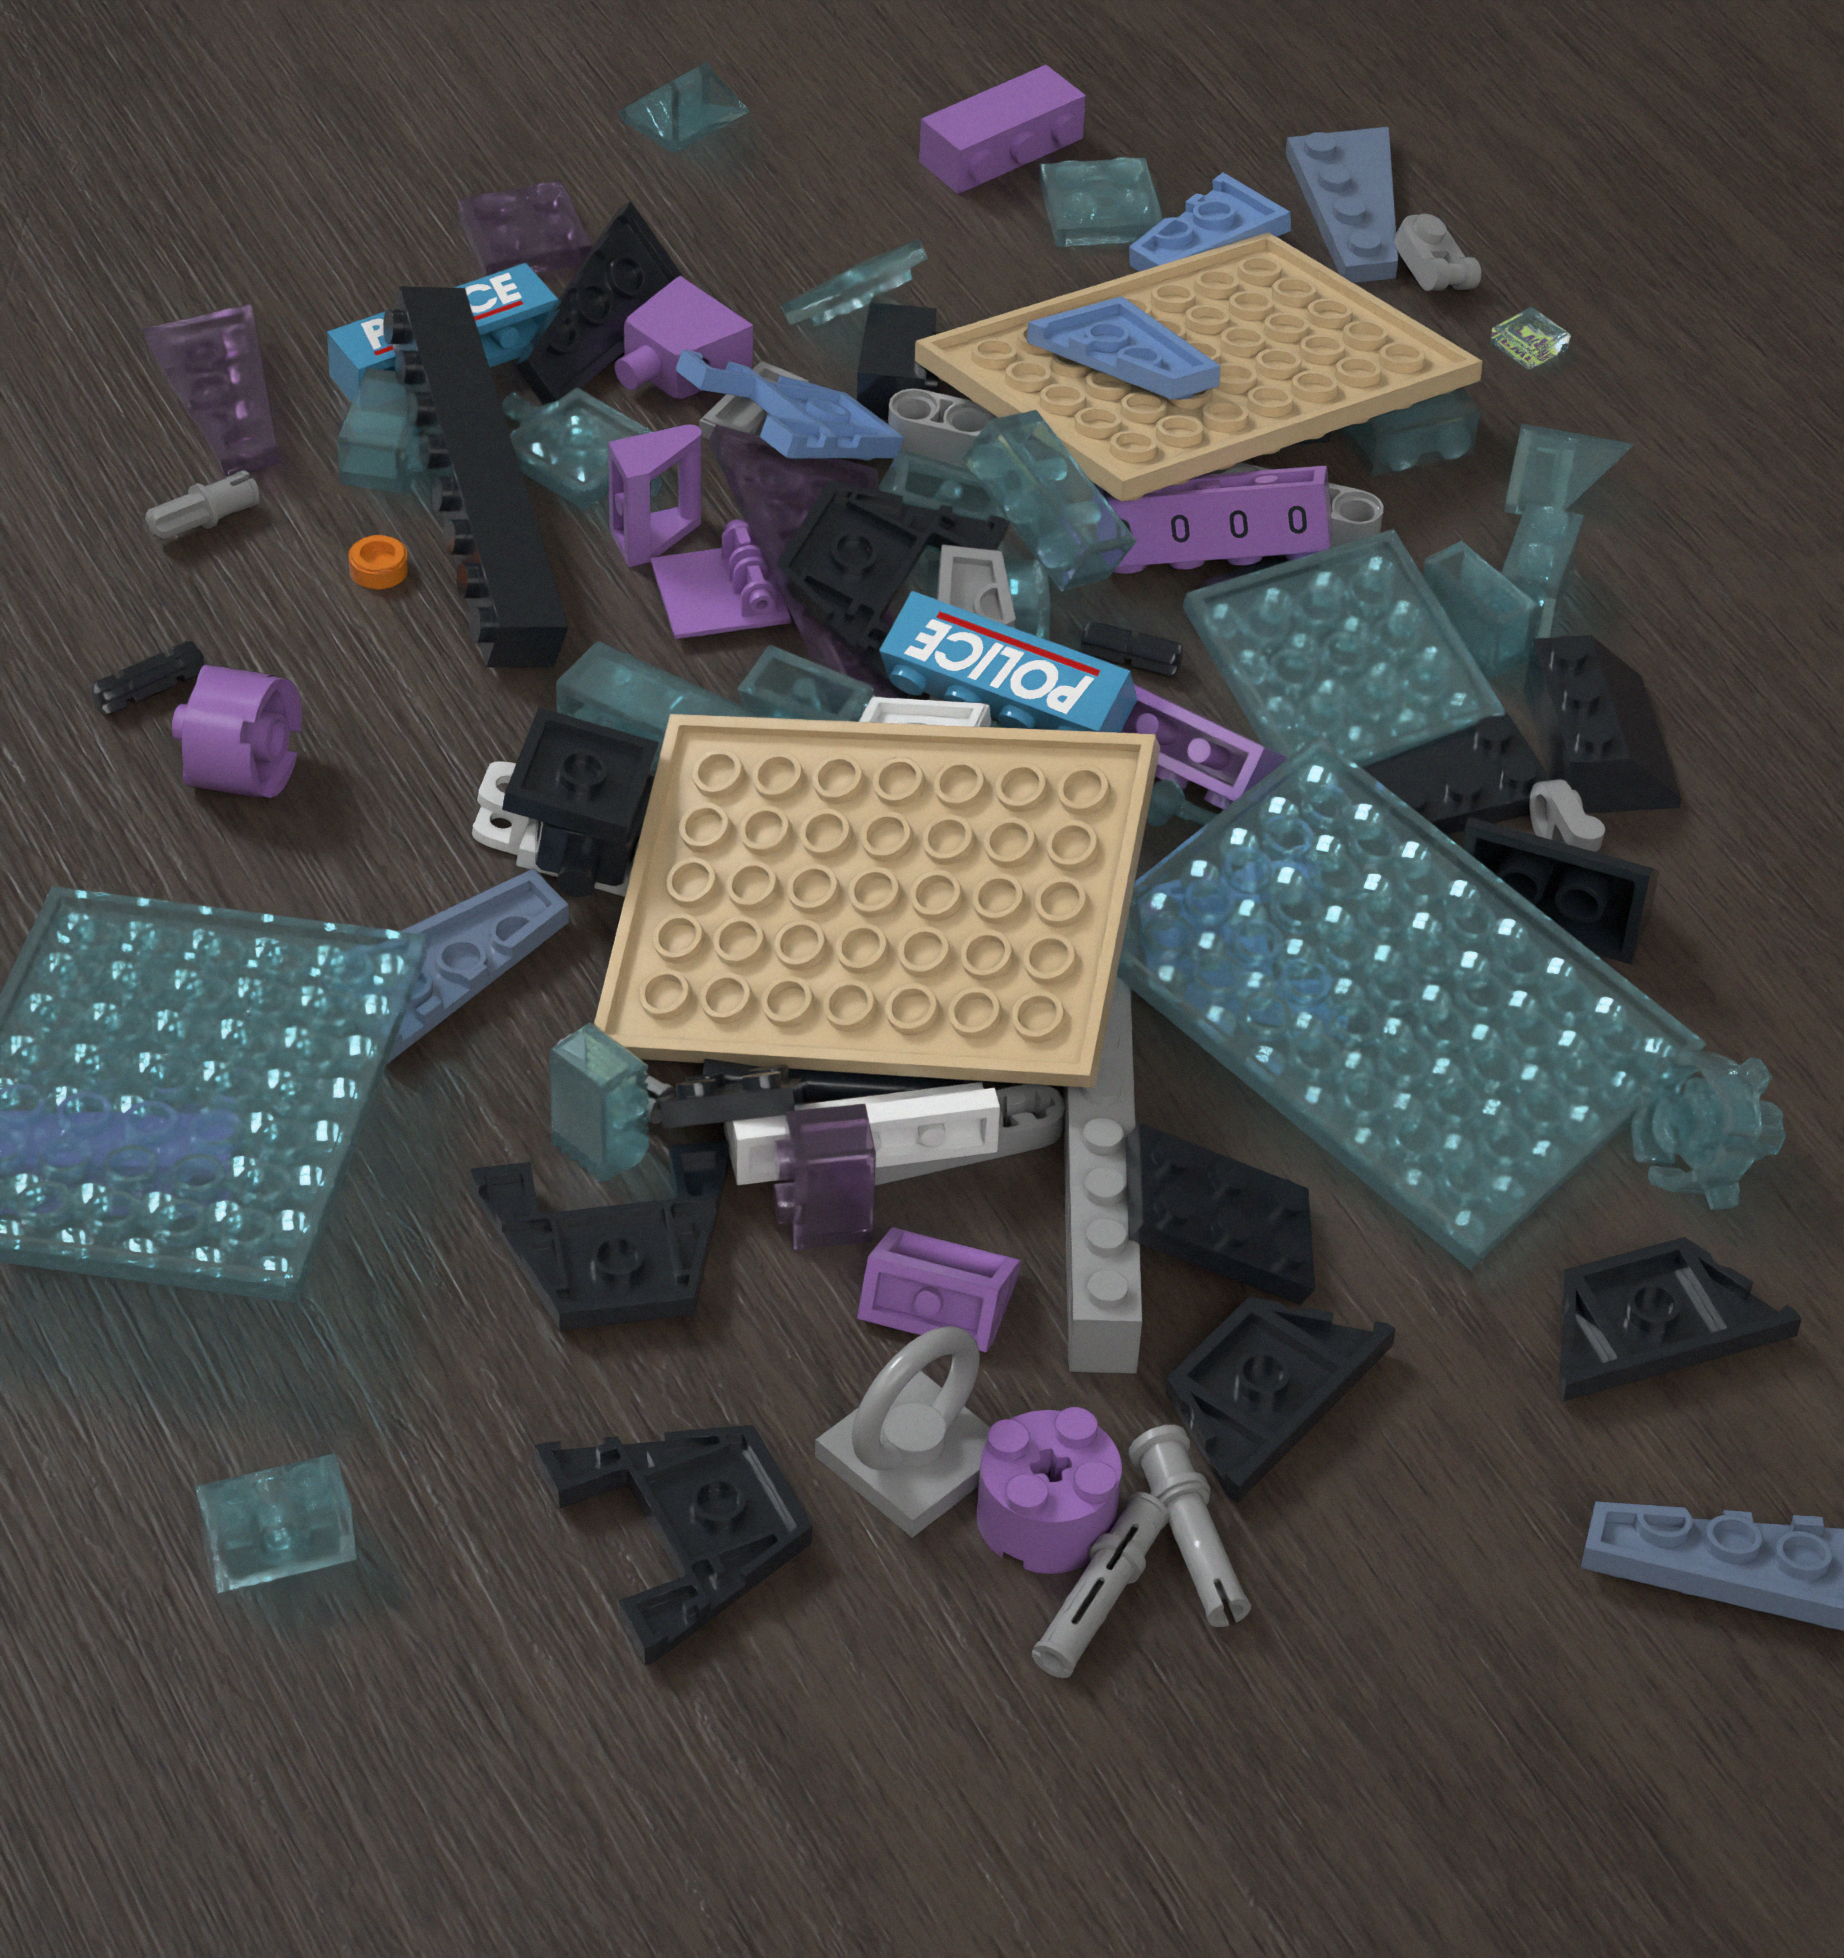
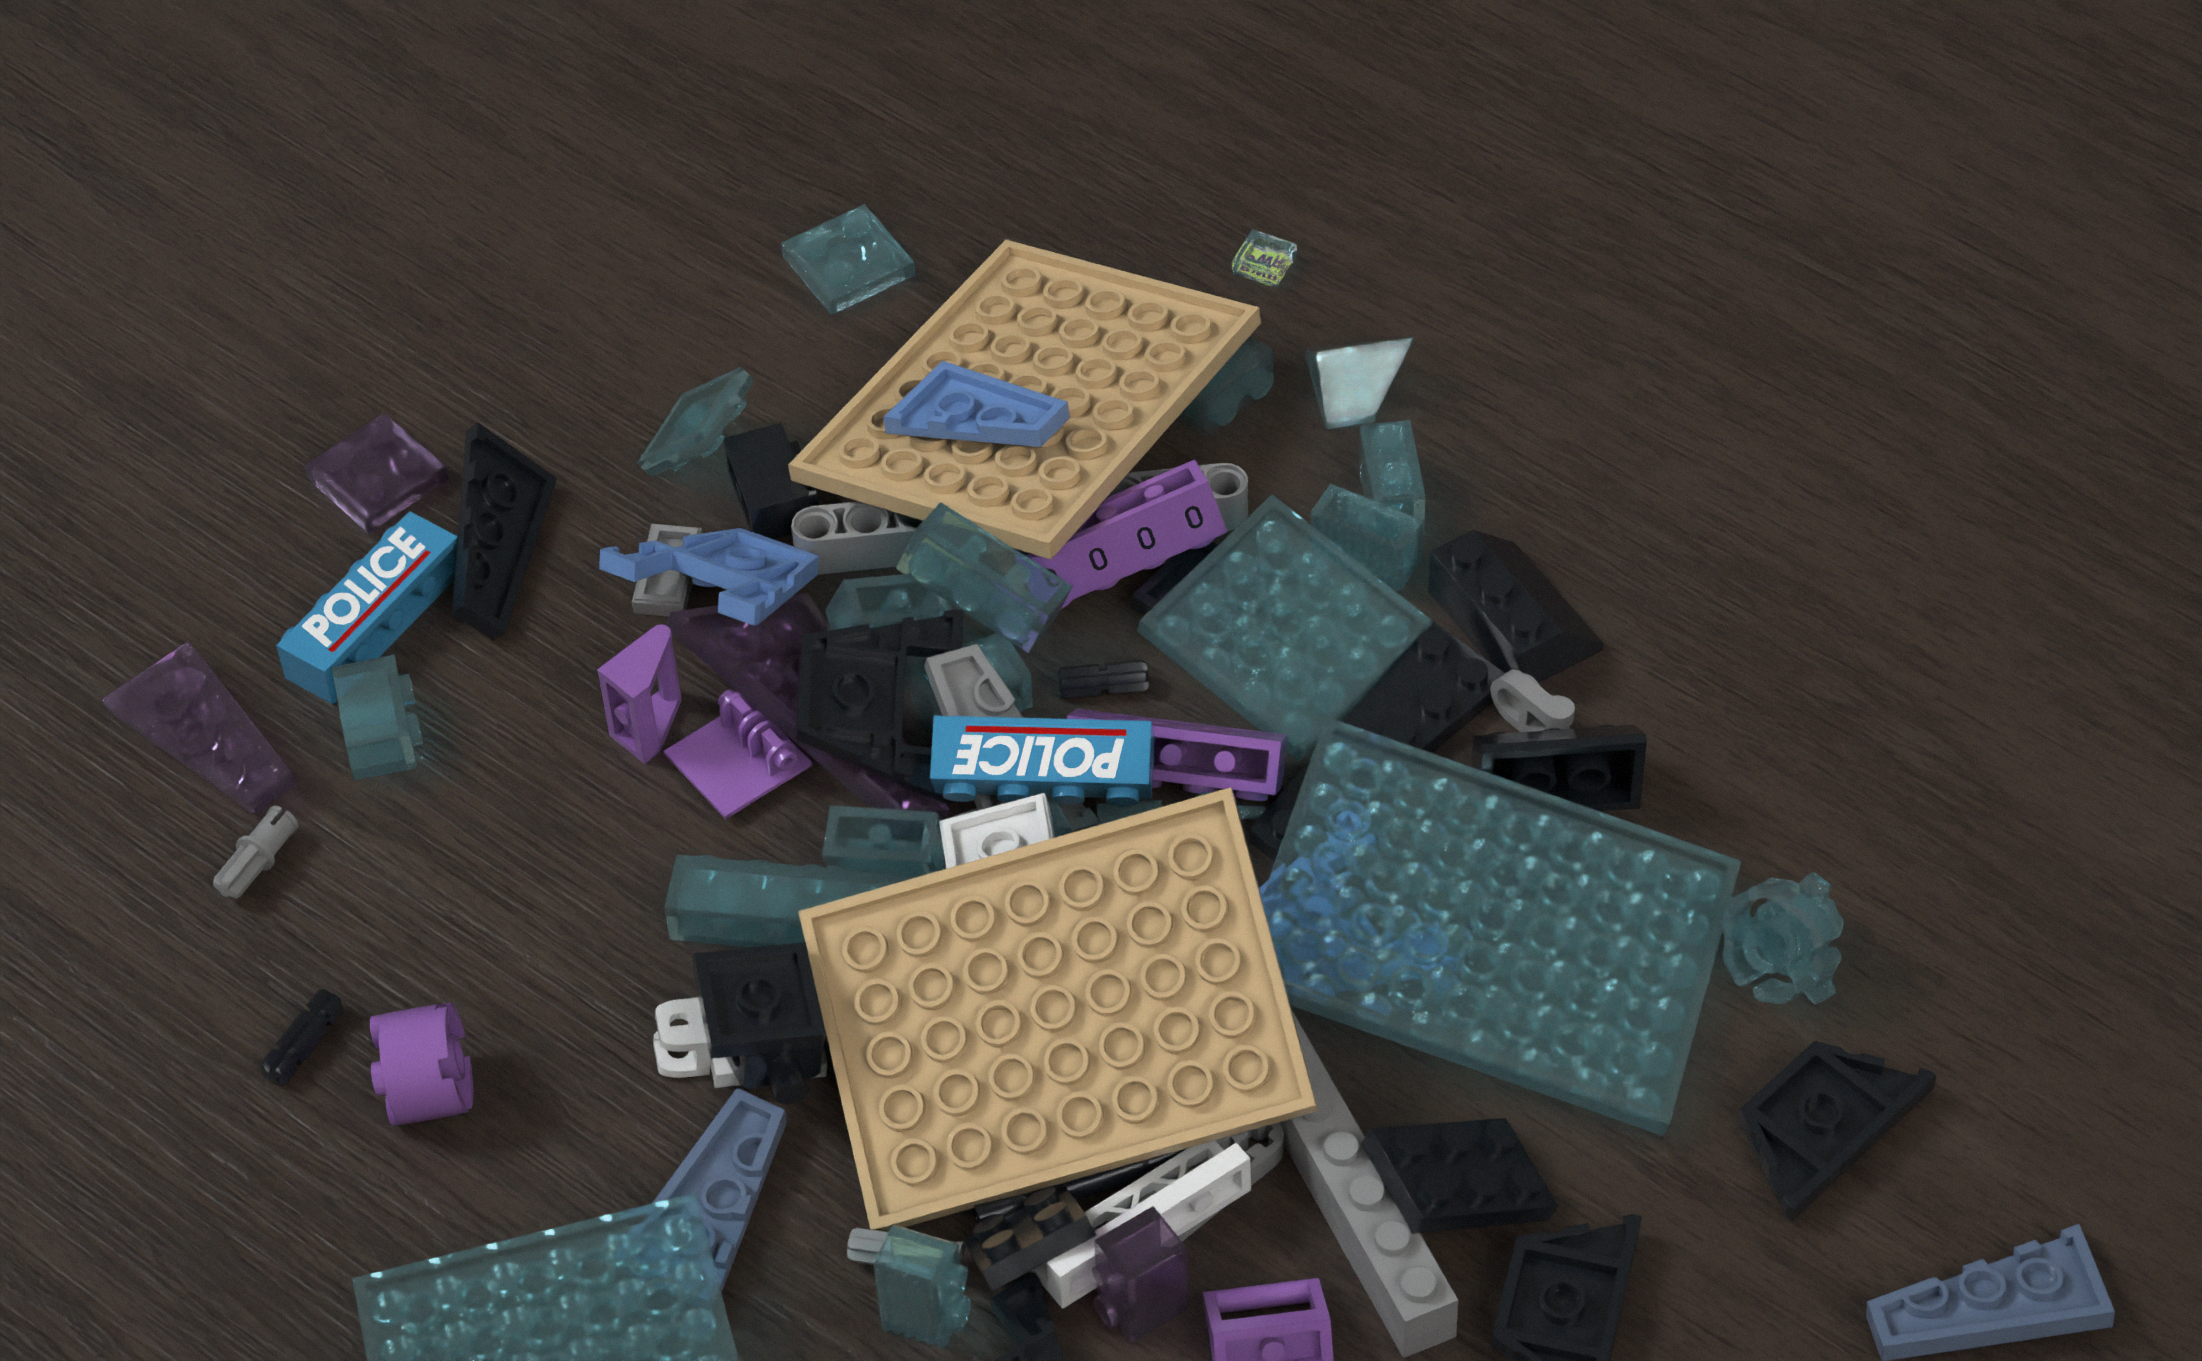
camera: 20 degrees left, 5 degrees up
(378, 562) = (433, 845): orange tile -> none
(475, 478) = (487, 738): black brick -> none
(568, 443) = (542, 667): clear light blue plate -> none
(678, 320) = (573, 526): medium lavender torso -> none
(684, 109) = (446, 303): clear light blue slope -> none
(1002, 129) = (732, 221): medium lavender brick -> none
(1210, 221) = (952, 250): medium blue wing -> none
(1350, 197) = (1049, 175): sand blue wing -> none
(1435, 255) = (1150, 210): light grey plate -> none

